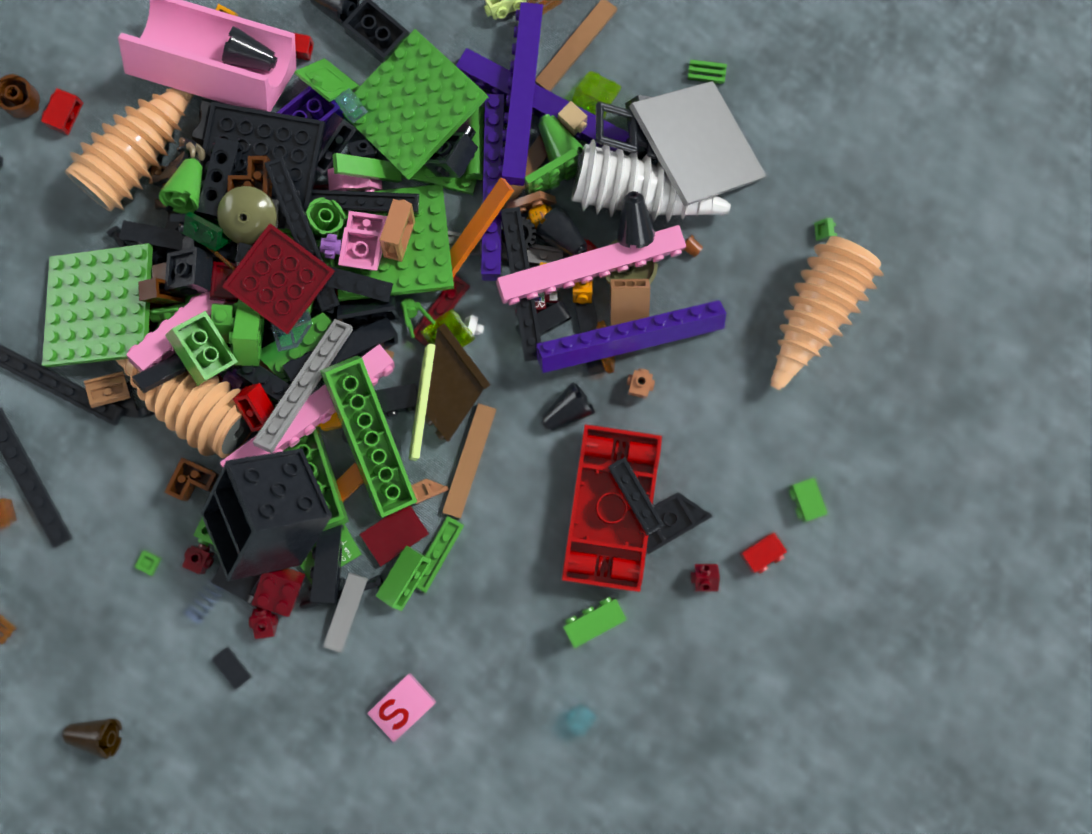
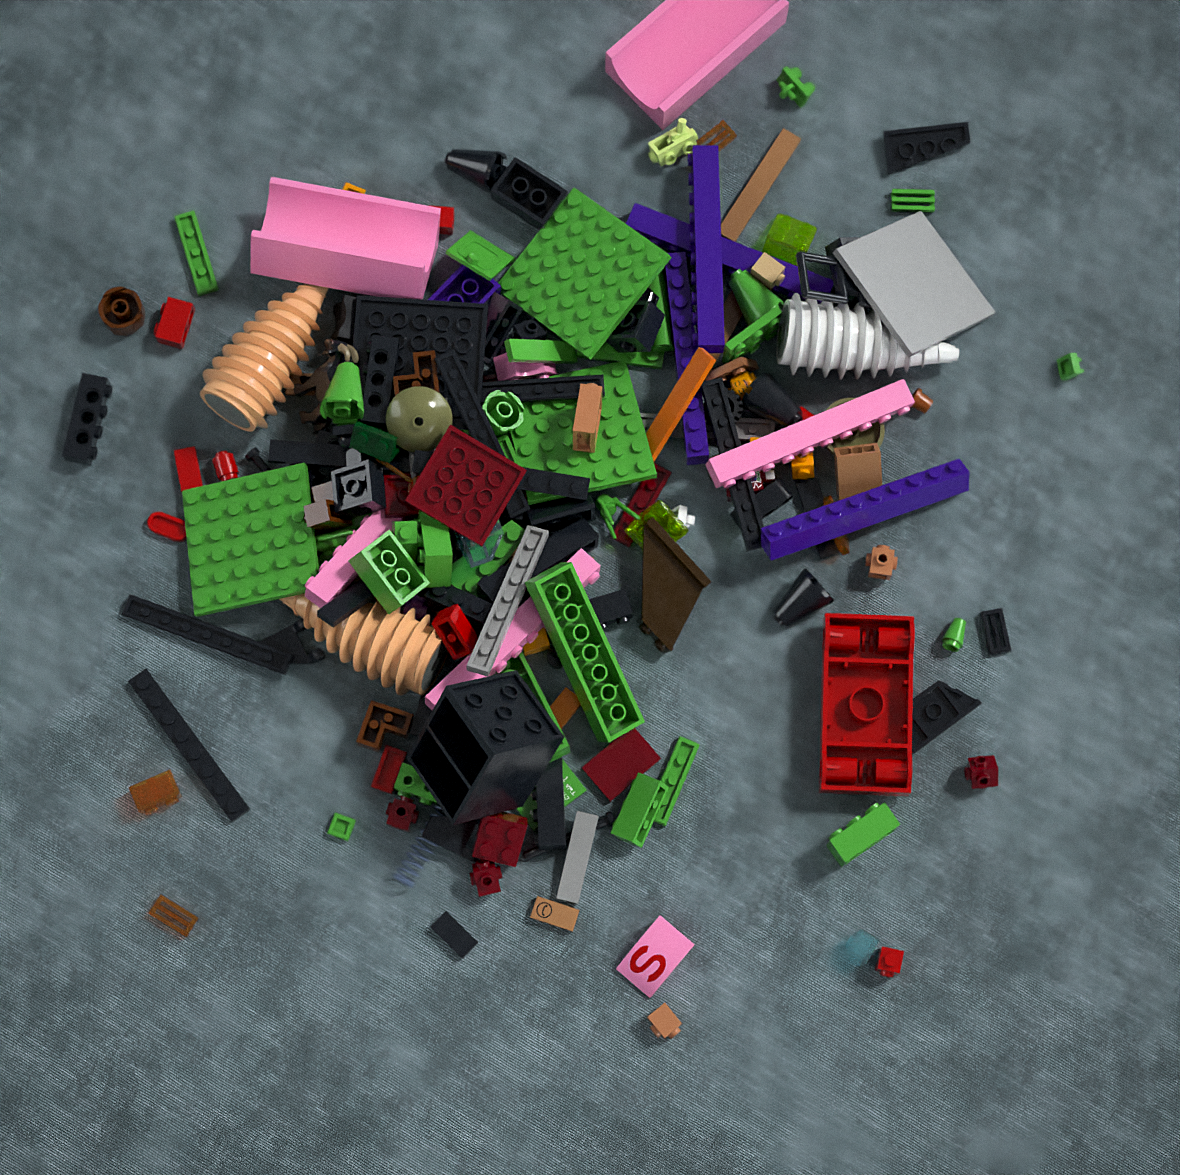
camera: 10 degrees left, 5 degrees down
(32, 285) = (167, 526): none -> red tile
(58, 237) = (188, 468): none -> red tile
(88, 239) = (225, 466): none -> red brick
(89, 54) = (196, 253): none -> bright green tile
(95, 736) = (308, 1026): dark brown cone -> none
(107, 389) = (272, 633): medium nougat plate -> none
(192, 517) = (388, 769): none -> red tile
(247, 52) = (390, 235): black cone -> none
(320, 659) = (554, 914): none -> medium nougat tile
(330, 246) = (514, 443): medium lavender gear -> none
(351, 105) = (512, 282): clear light blue brick -> none
(361, 241) = (548, 434): bright pink slope -> none
(402, 766) = (664, 1022): none -> nougat brick
(421, 404) = (637, 608): yellowish green tile -> none
(427, 489) = (653, 708): nougat tile -> none
(469, 461) = (696, 671): medium nougat tile -> none
(604, 736) = (889, 961): none -> red brick
(635, 222) = (855, 381): black cone -> none
(635, 496) = (893, 686): black tile -> none
(696, 454) = (954, 635): none -> bright green cone
(718, 23) = (919, 144): none -> black wing
(732, 454) = (999, 649): none -> black tile
(763, 553) = (1043, 738): red brick -> none
(808, 500) = (1087, 673): bright green brick -> none
(823, 303) = (1077, 450): light nougat cone -> none

